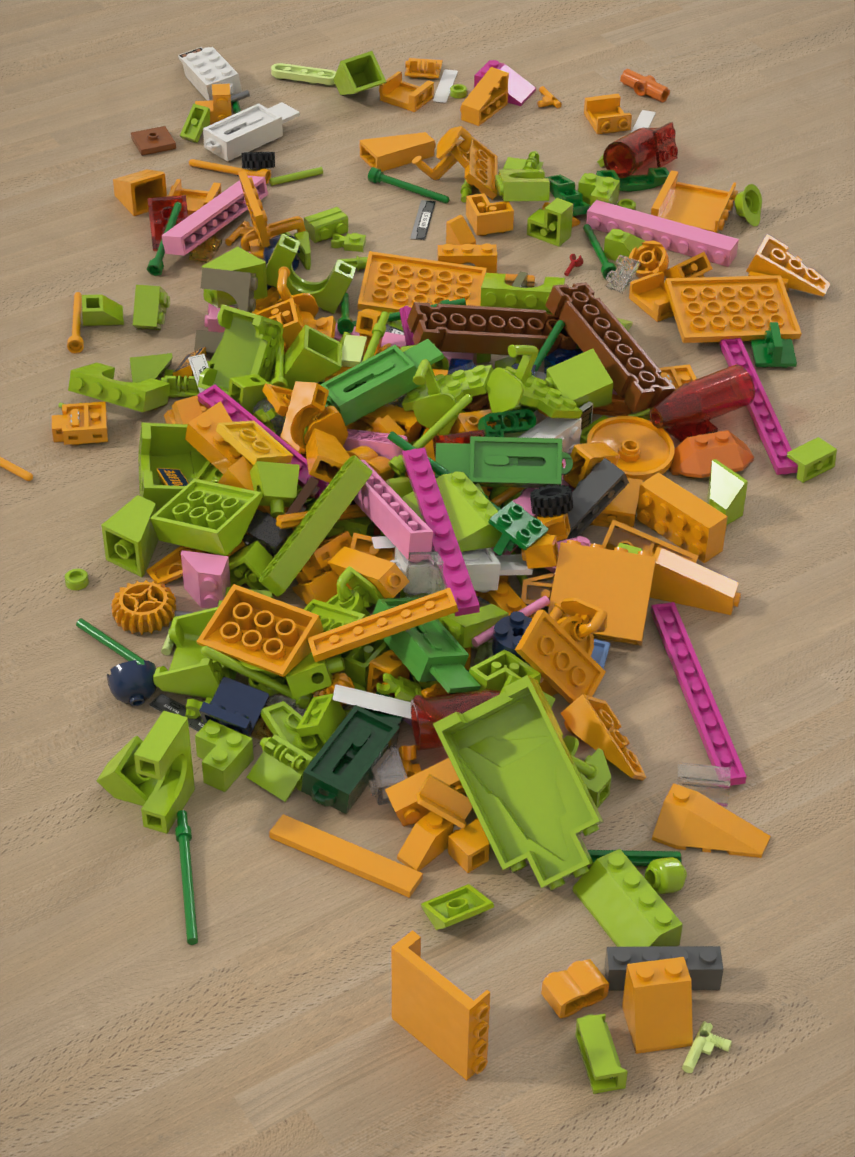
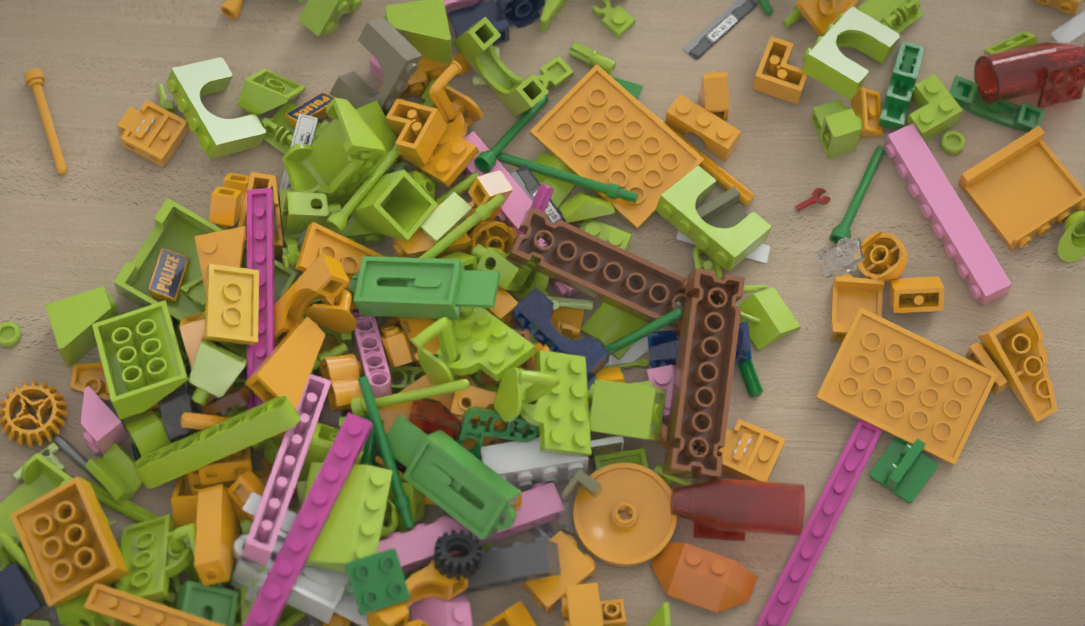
camera: 35 degrees right, 25 degrees up
(585, 457) = (549, 523): light orange slope -> none
(596, 426) = (584, 481): none -> olive panel
(620, 243) = (892, 210): lime slope -> none

